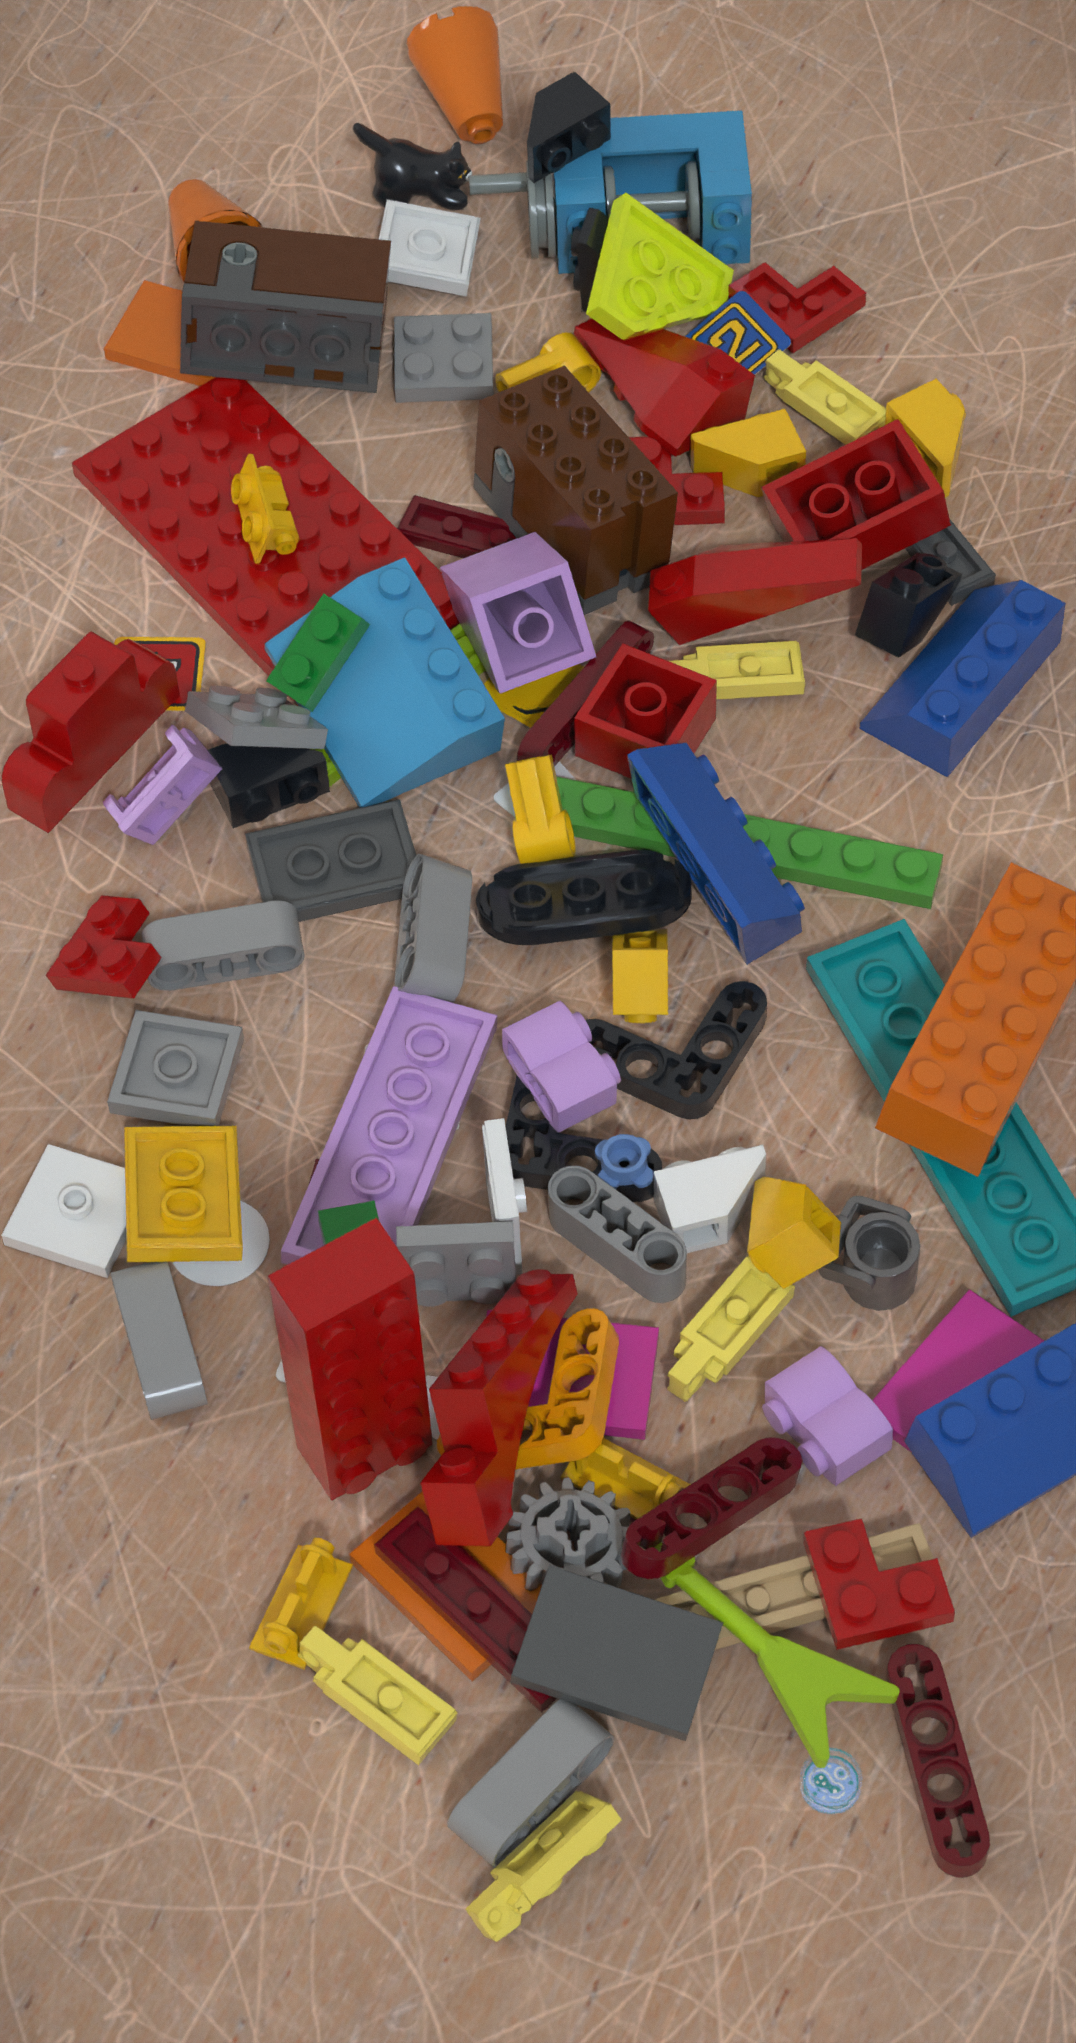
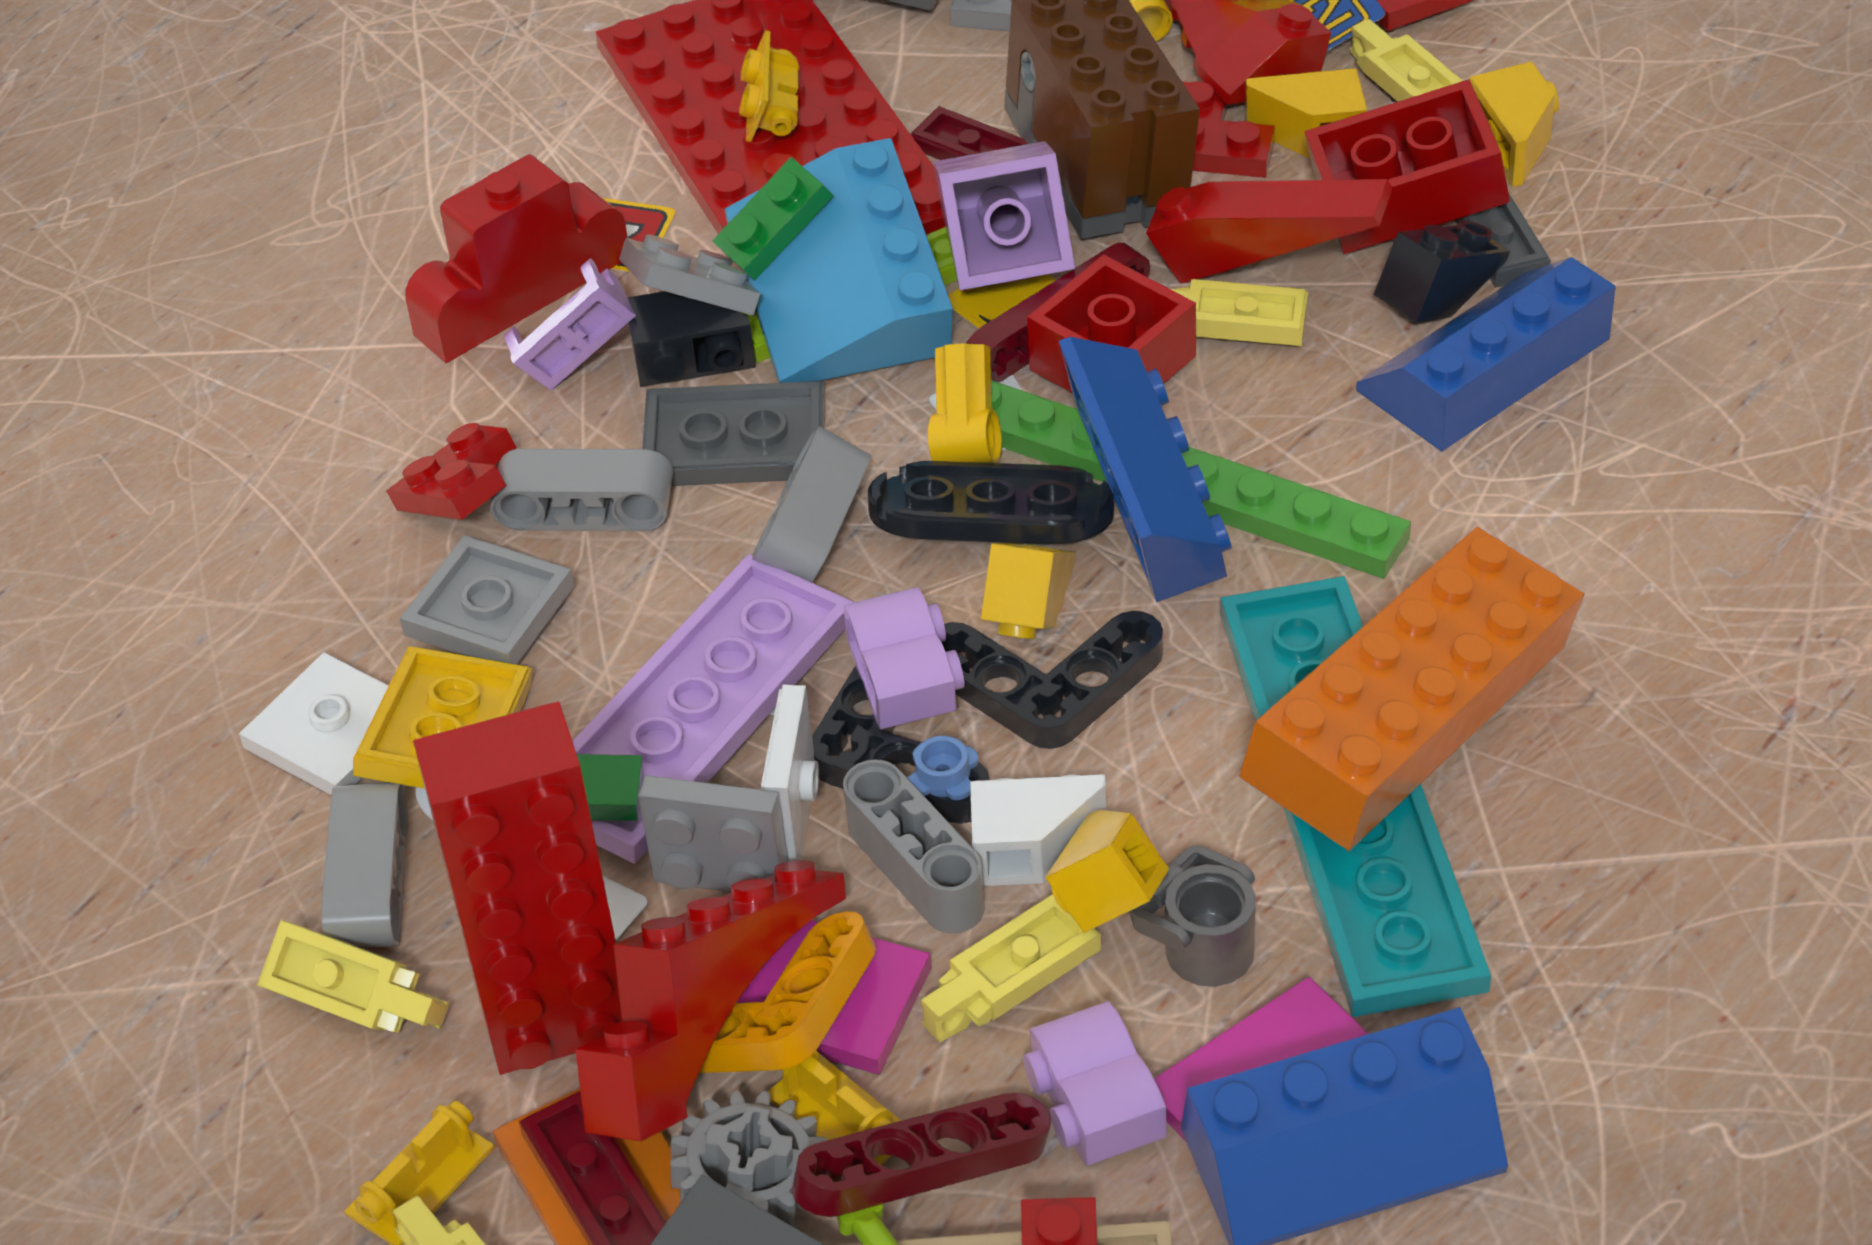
camera: 15 degrees right, 10 degrees down
(180, 1446) = (347, 980): none -> light yellow hinge

